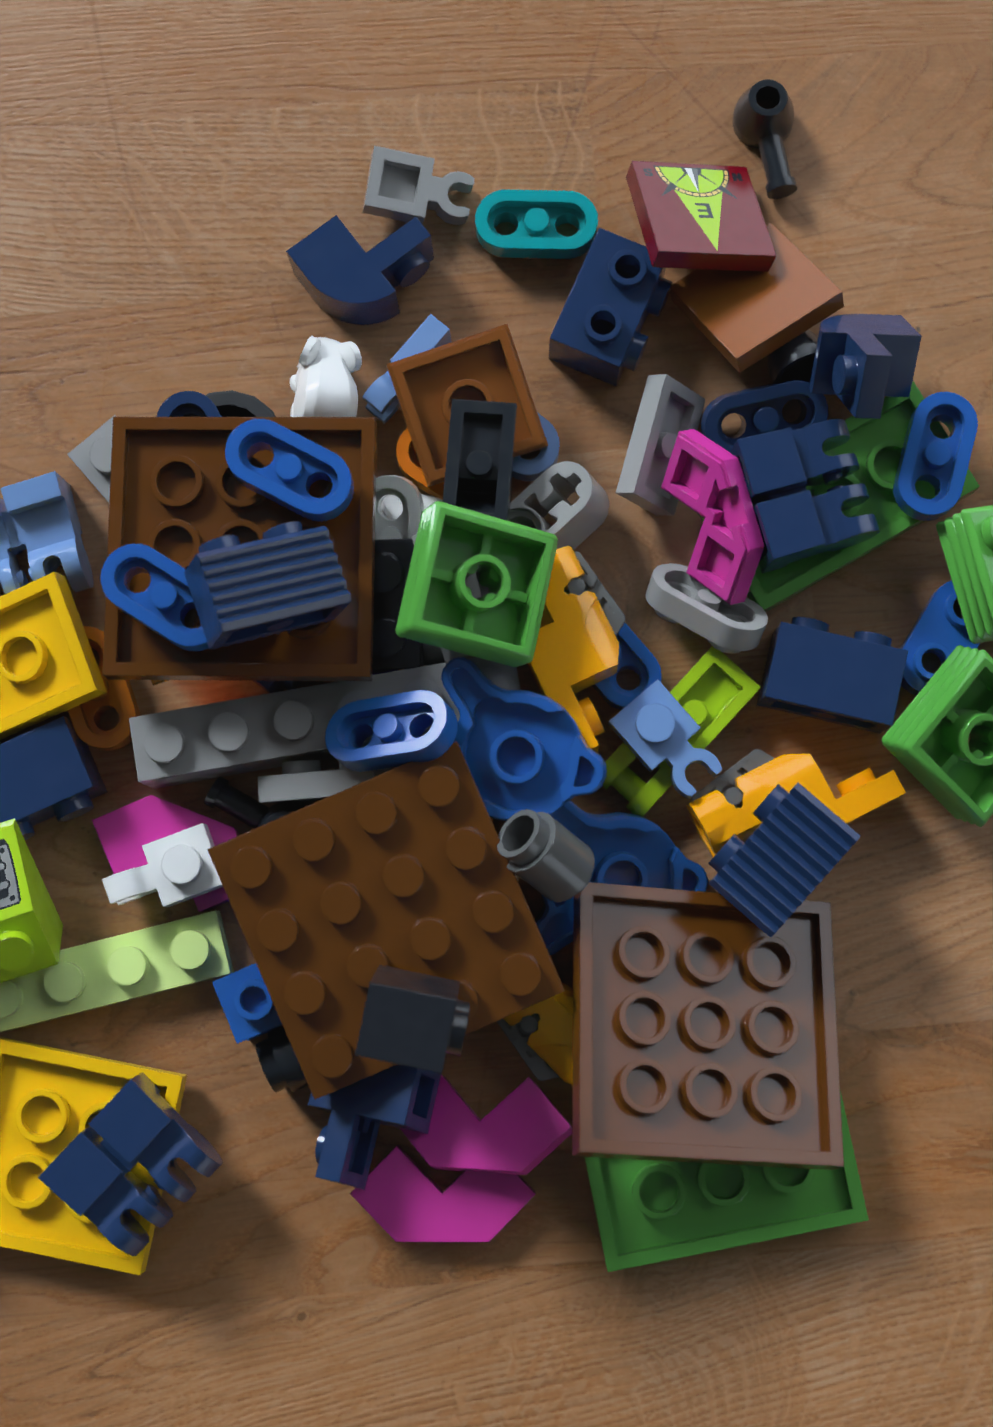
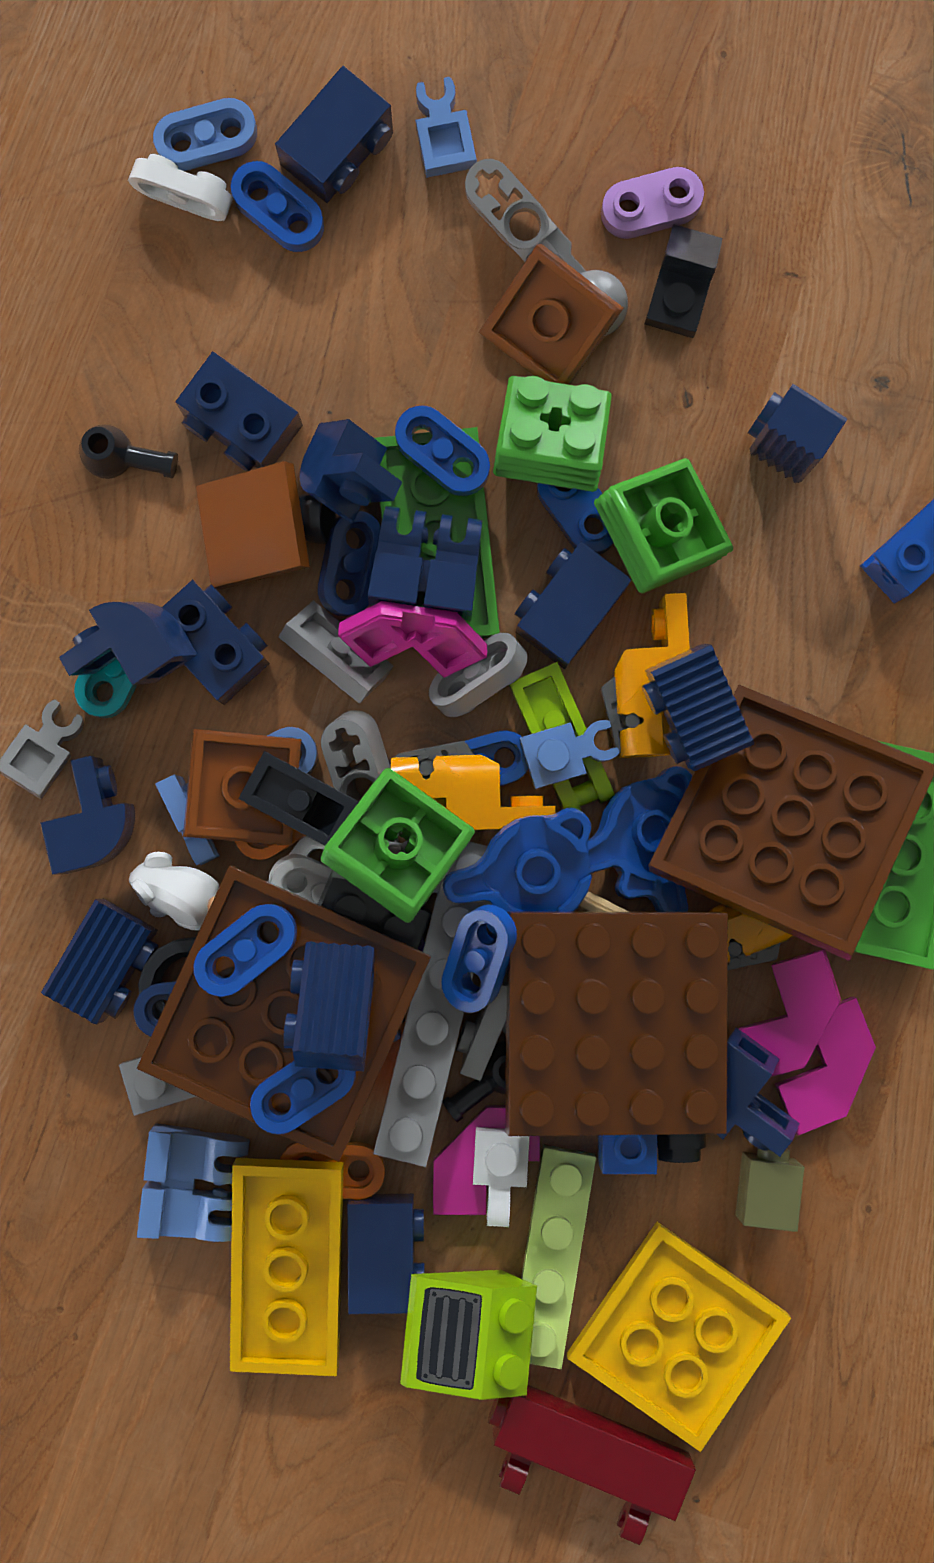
camera: 80 degrees left, 5 degrees up
(97, 1165) = (706, 1319): dark blue legs -> none
(215, 346) = (101, 962): none -> dark blue brick
(273, 1188) = (769, 1190): none -> olive brick
(412, 1019) = (709, 1036): black brick -> none
(546, 855) = (621, 882): dark grey brick -> none
(577, 217) = (138, 635): none -> dark blue brick
(700, 216) = (170, 540): tile -> none
(870, 228) = (238, 414): none -> dark blue brick

